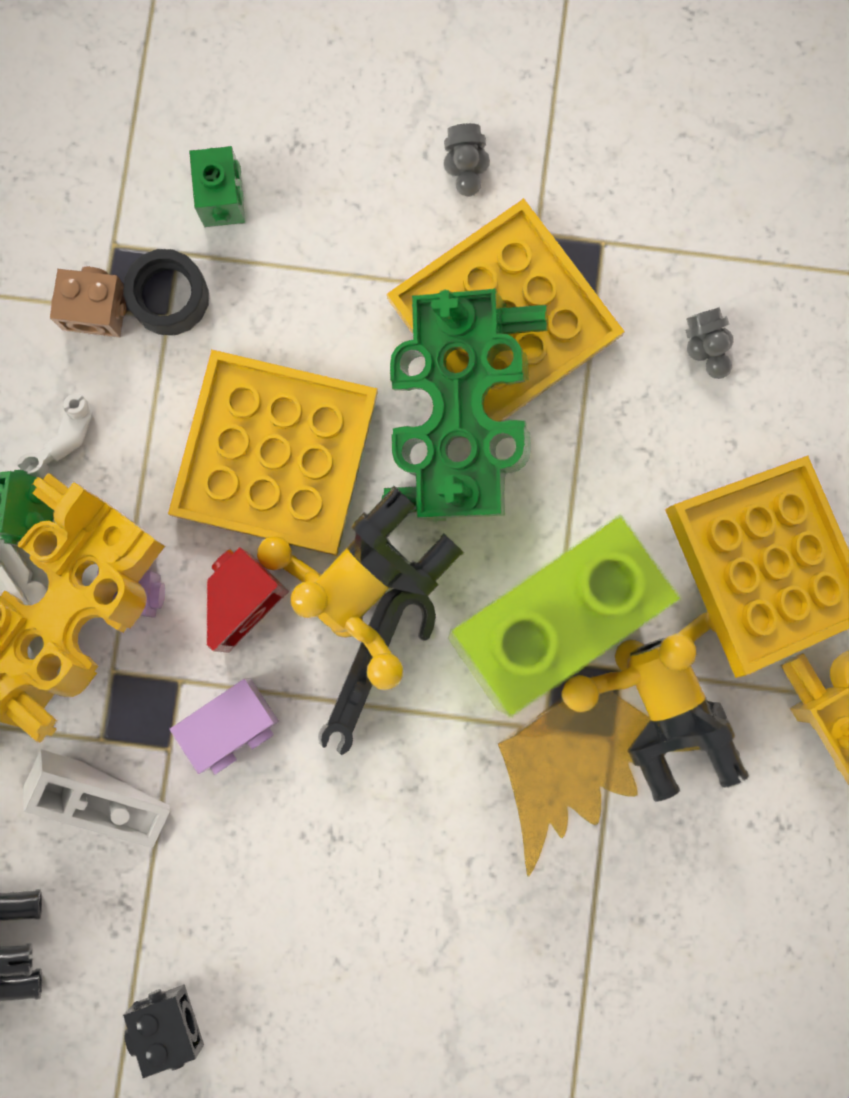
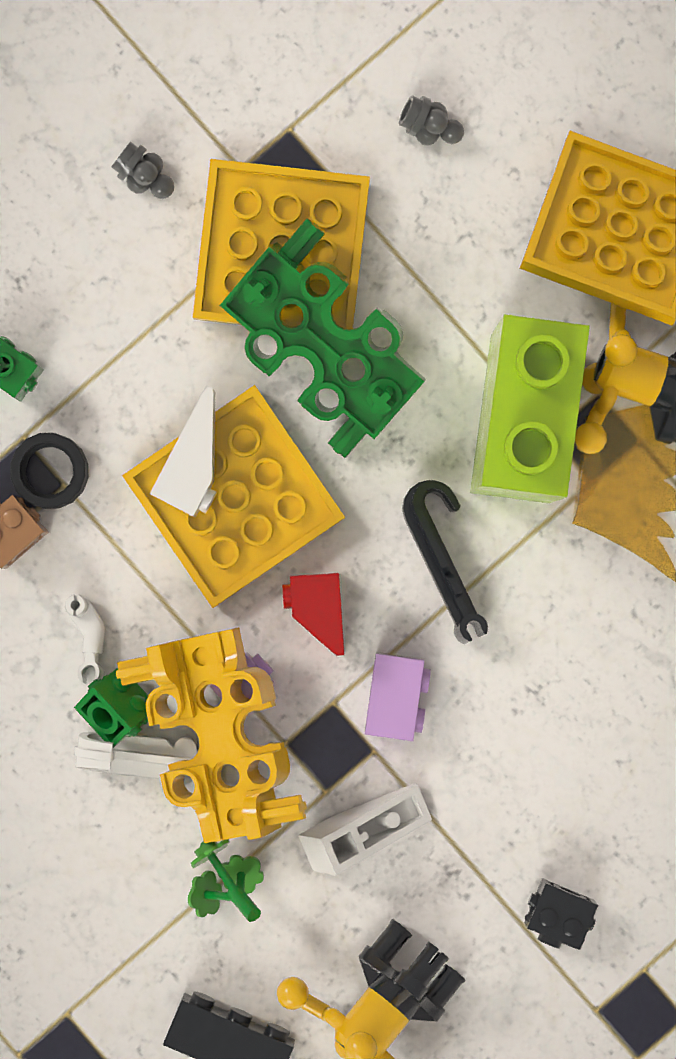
camera: 45 degrees left, 5 degrees up
(266, 391) = (190, 466): none -> white slope
(361, 578) = (381, 511): wheel -> none

